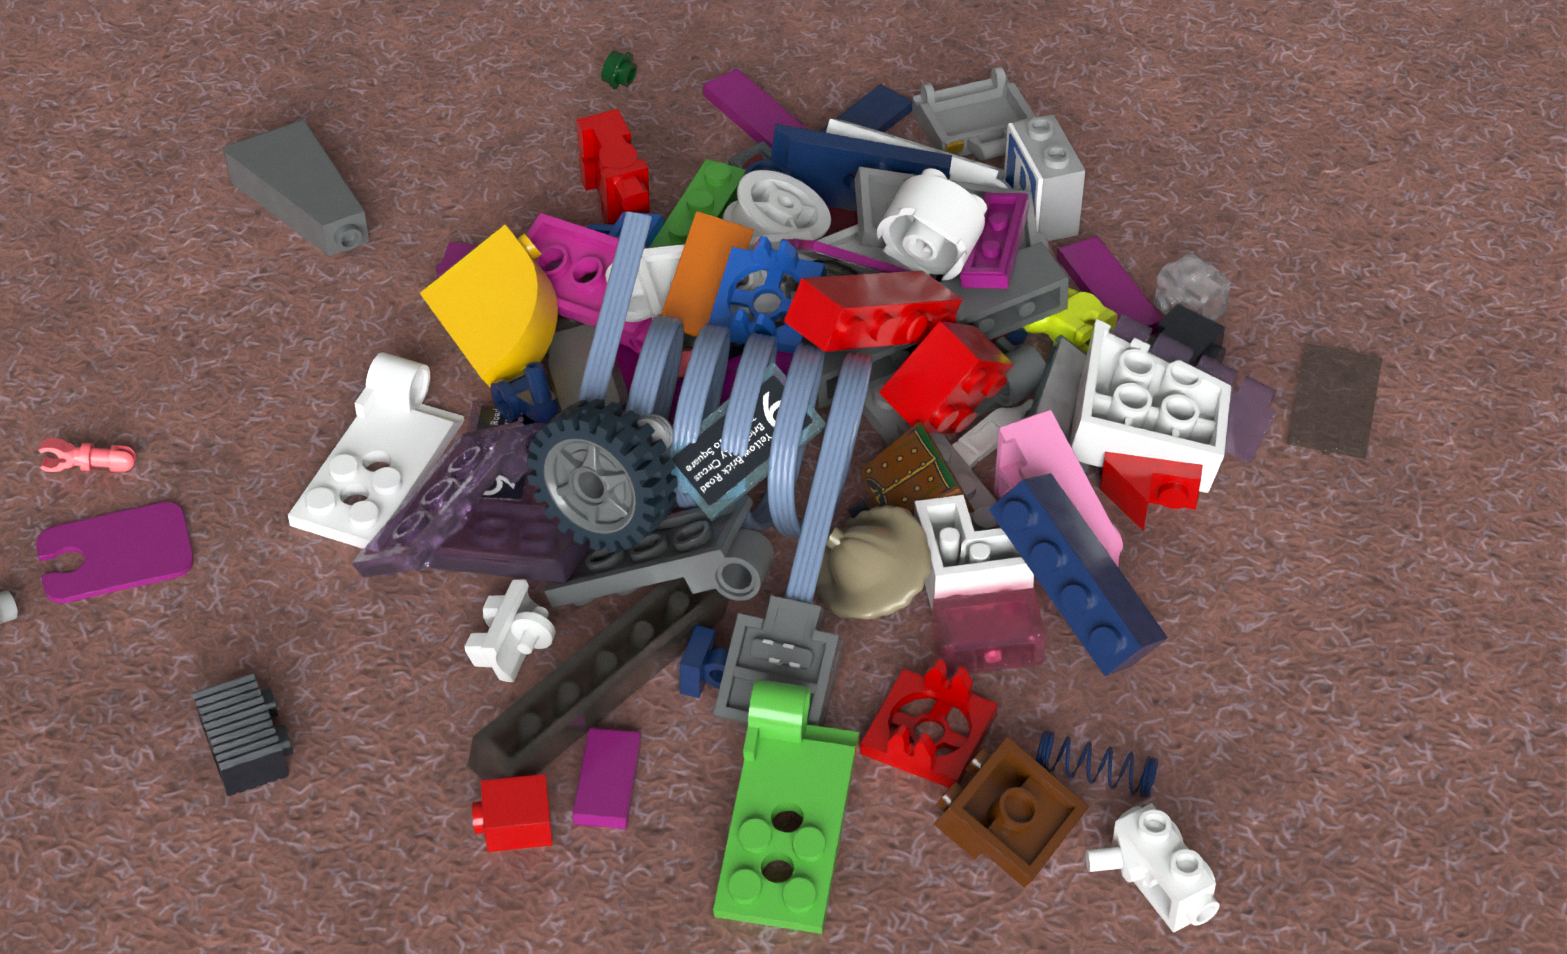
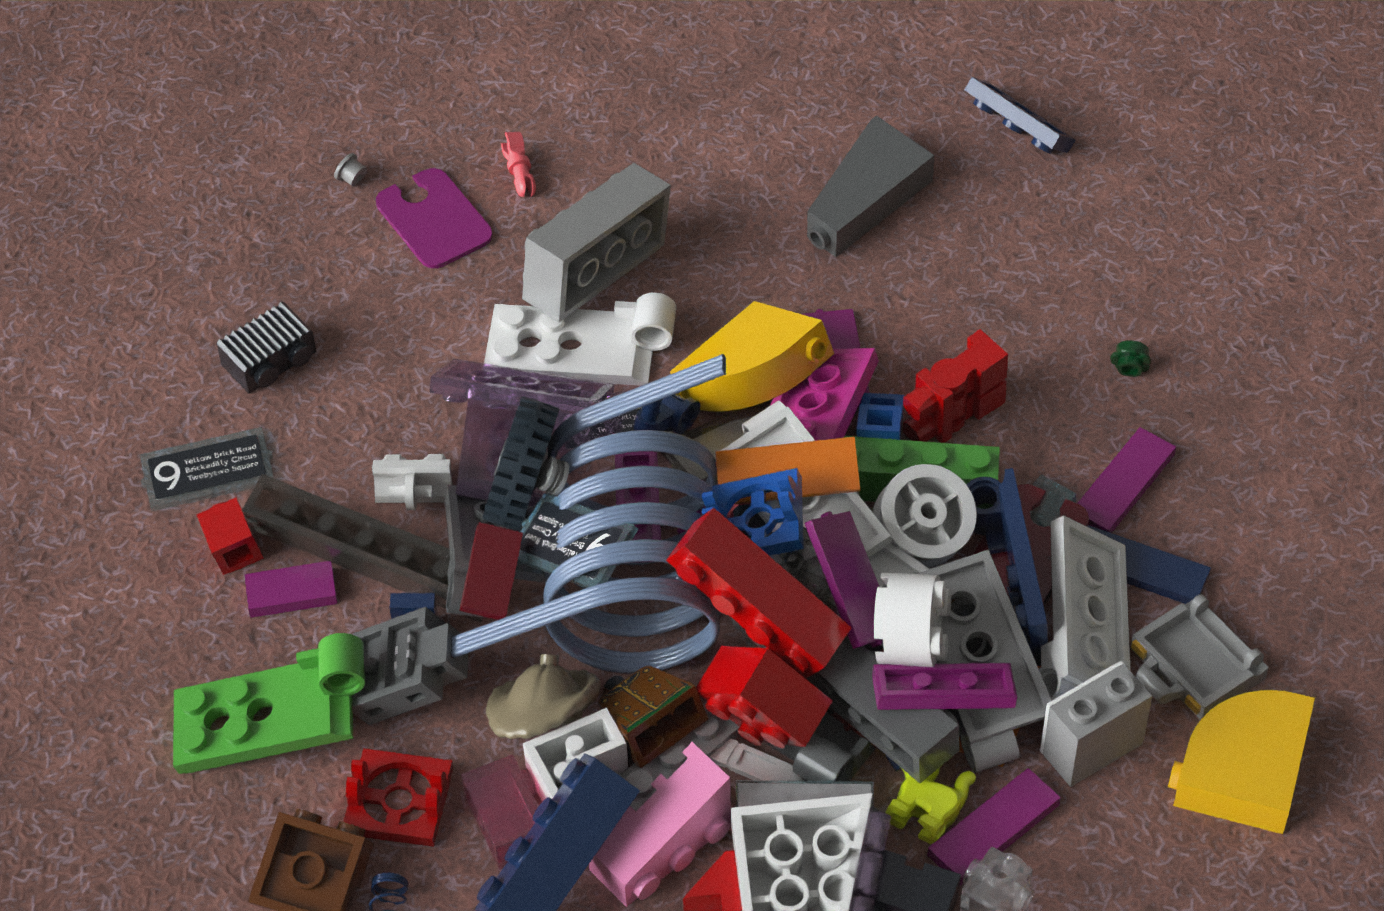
camera: 75 degrees right, 5 degrees up
(273, 64) = (1019, 117): none -> plate
(277, 388) = (595, 241): none -> light grey brick
(386, 836) = (205, 468): none -> piece
(743, 523) = (491, 571): none -> dark red tile
(1102, 109) = (1245, 759): none -> yellow brick

